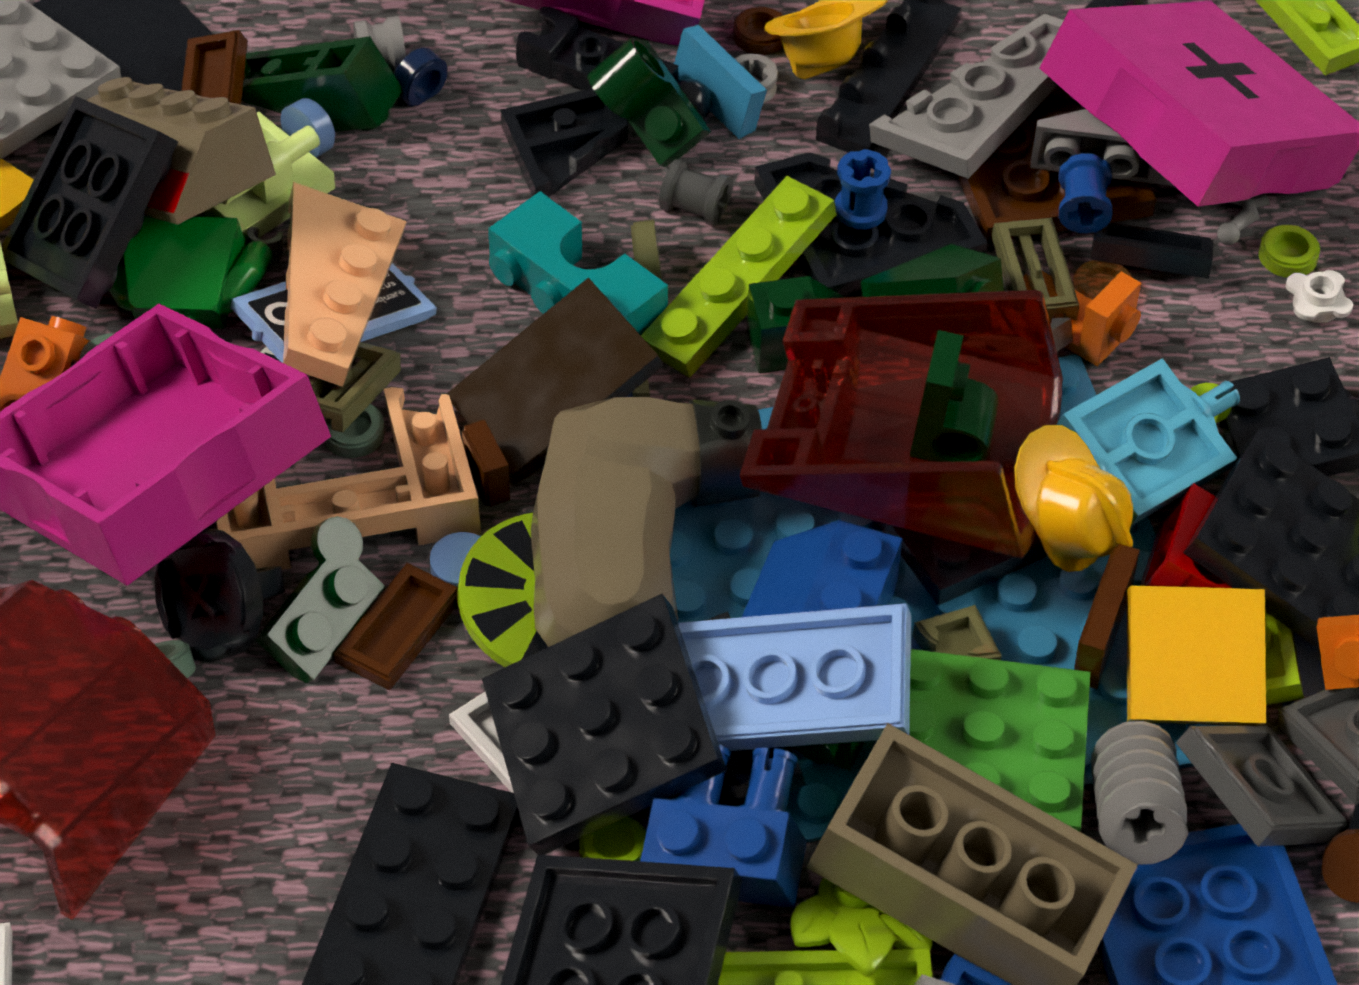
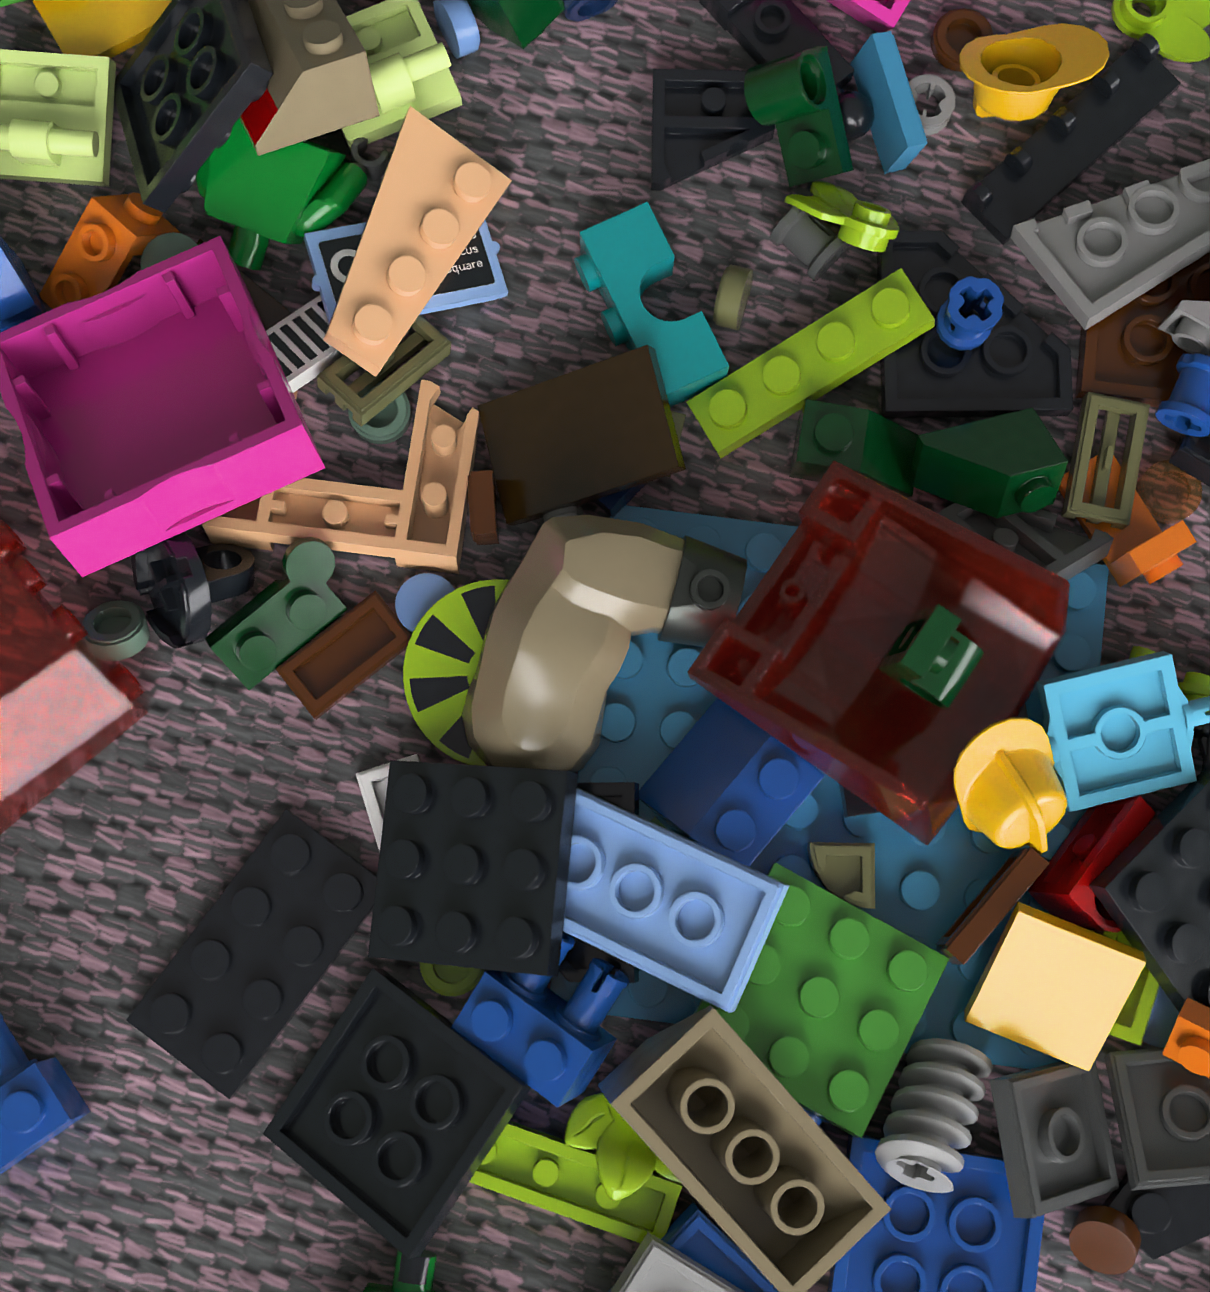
camera: 20 degrees right, 30 degrees up
(739, 156) = (861, 222): none -> lime plate

